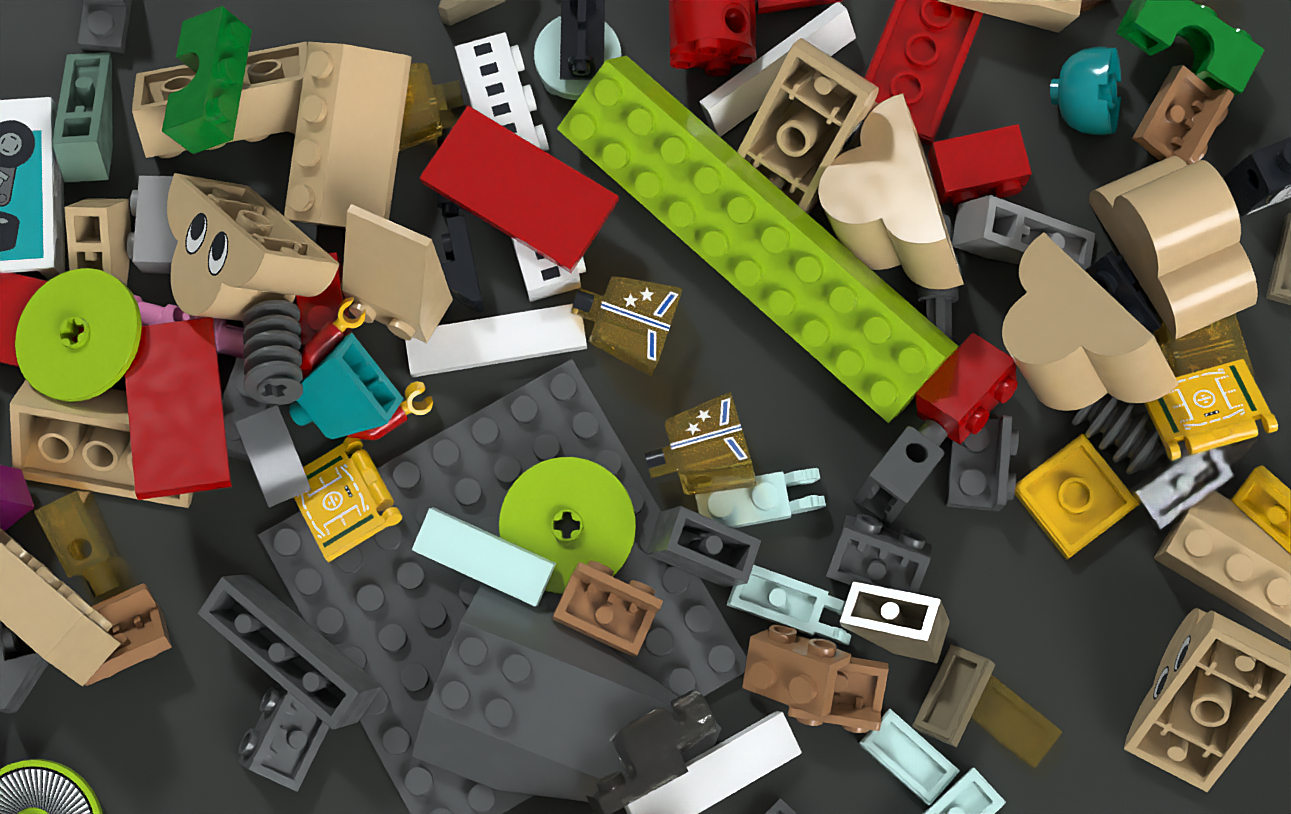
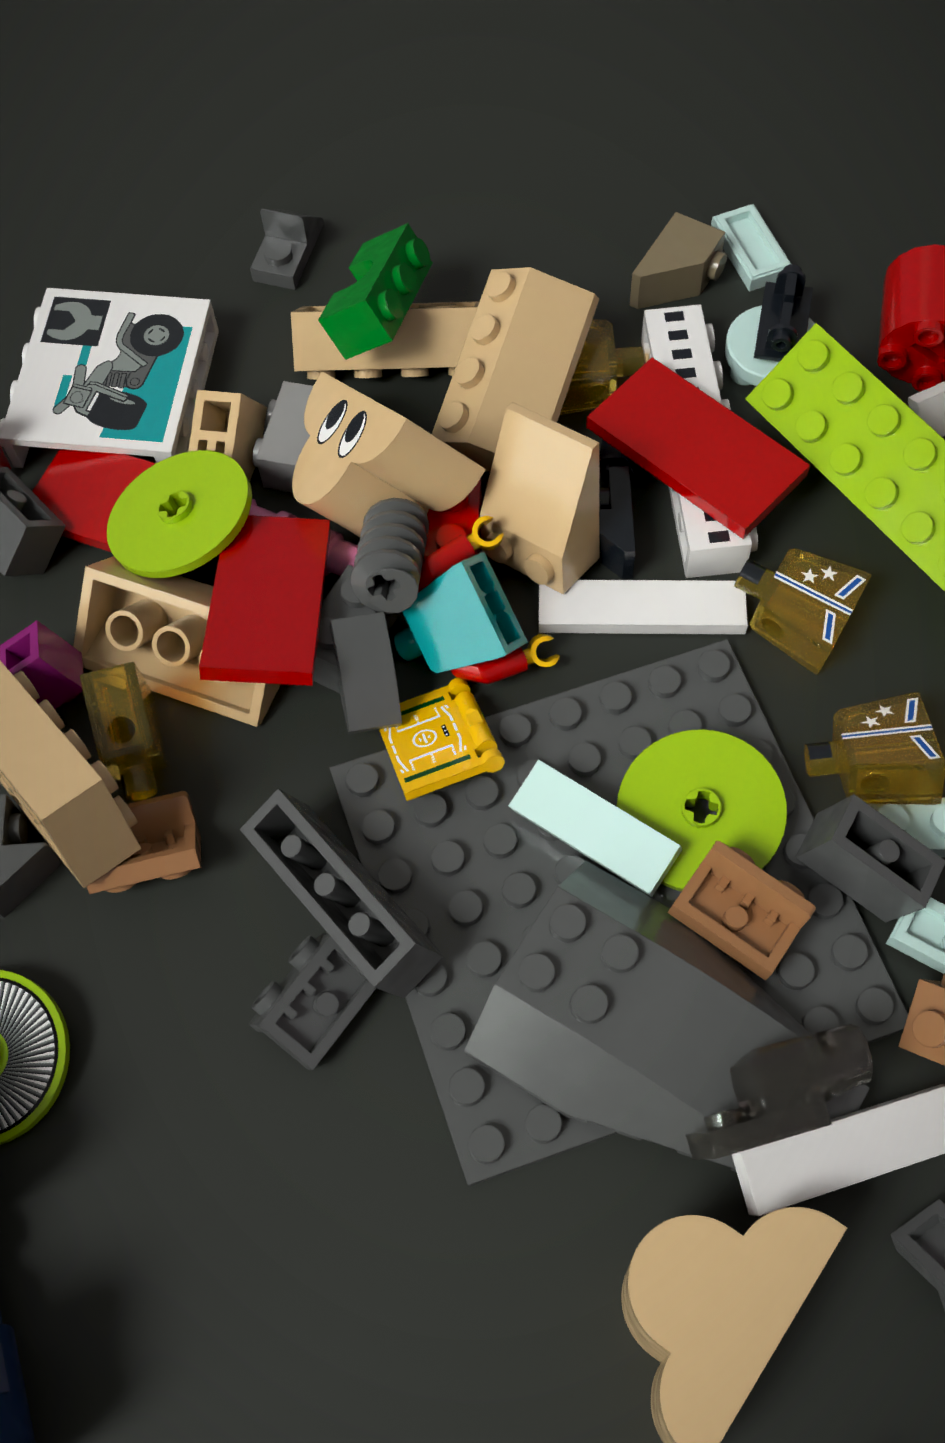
camera: 15 degrees right, 15 degrees down
(84, 118) = (238, 335): sand green slope -> none

